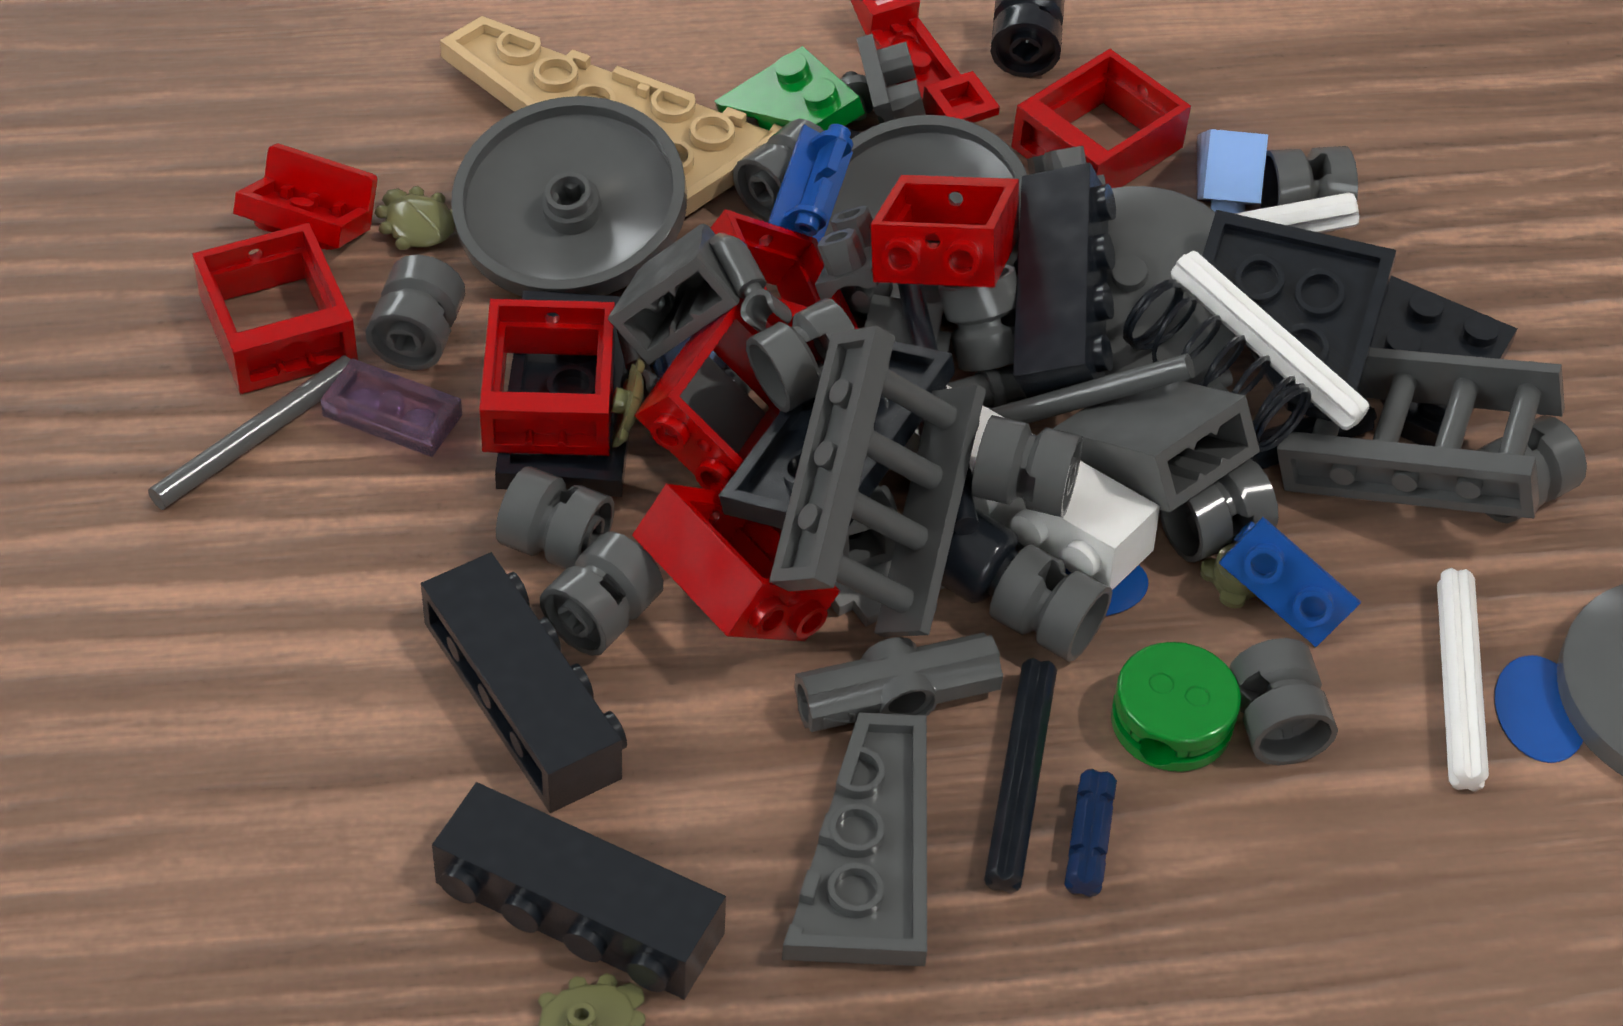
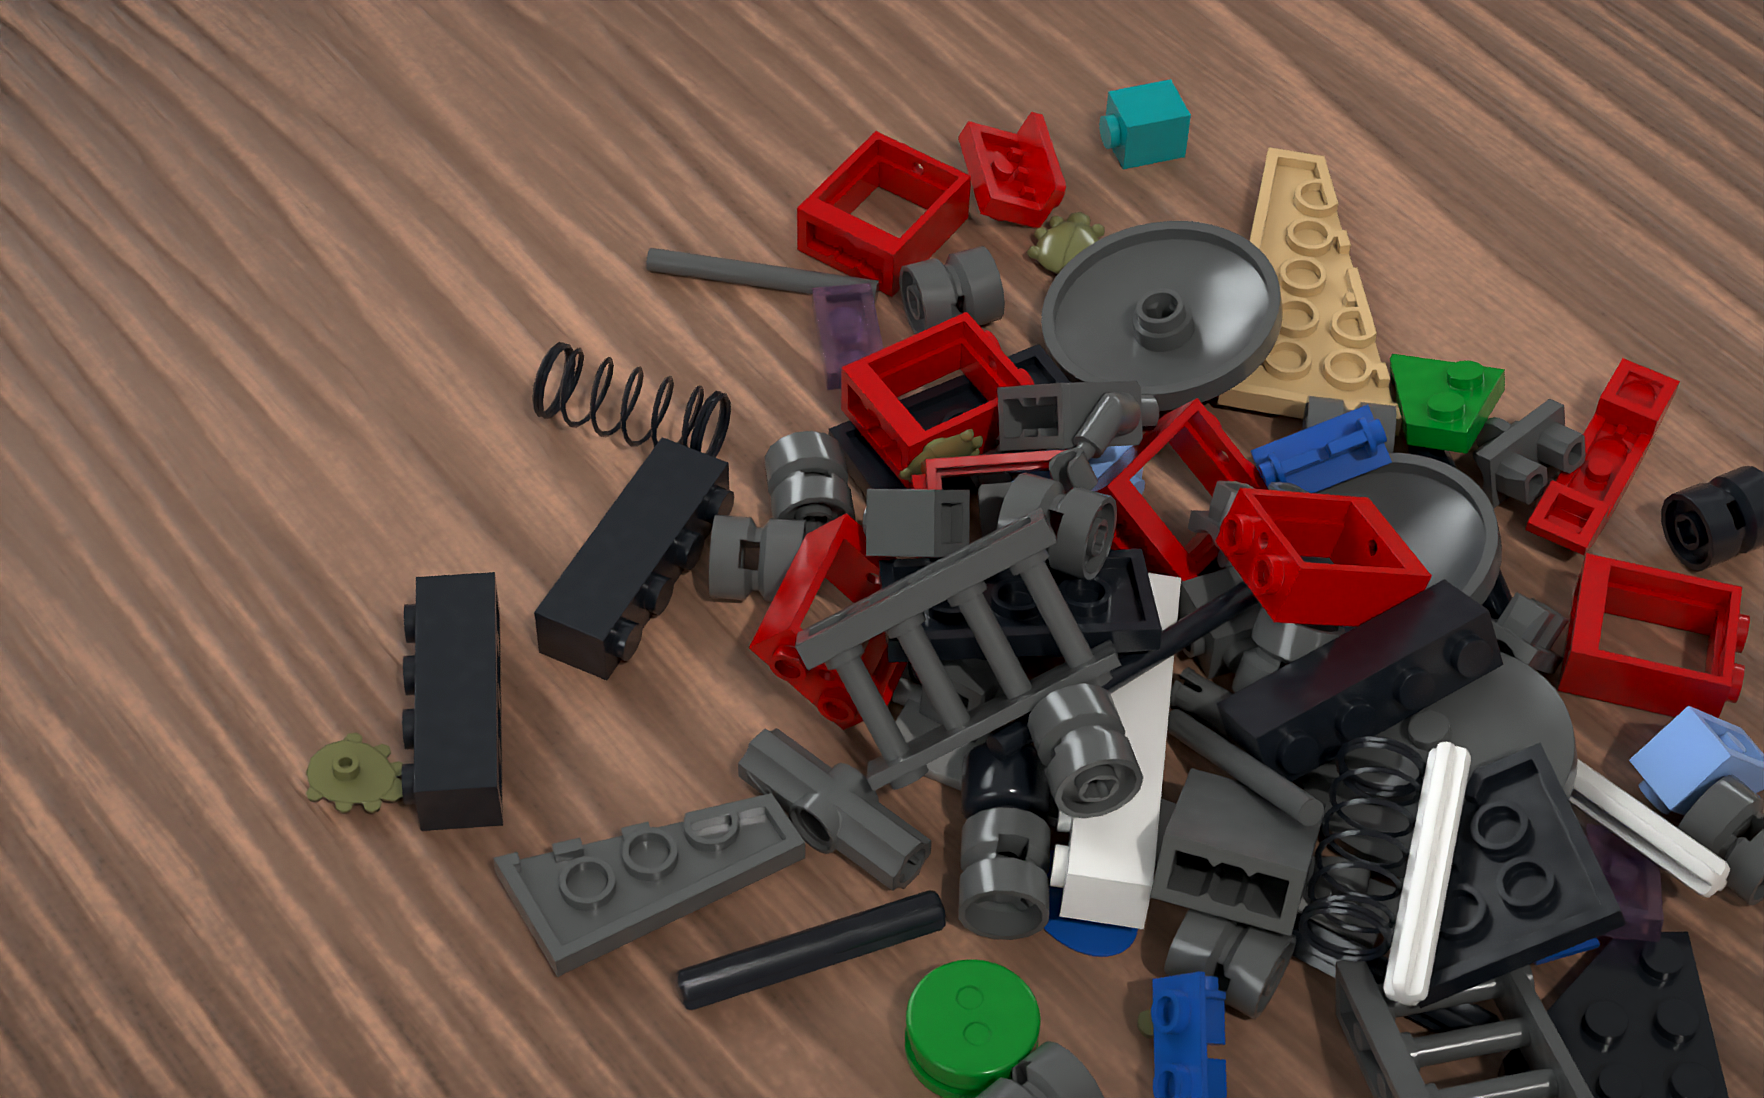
camera: 60 degrees right, 0 degrees up
(278, 658) = (569, 381): none -> black piece
(337, 94) = (1145, 124): none -> teal brick
(720, 443) = (916, 522): none -> dark grey brick
(1090, 833) = (784, 1033): dark blue axle -> none

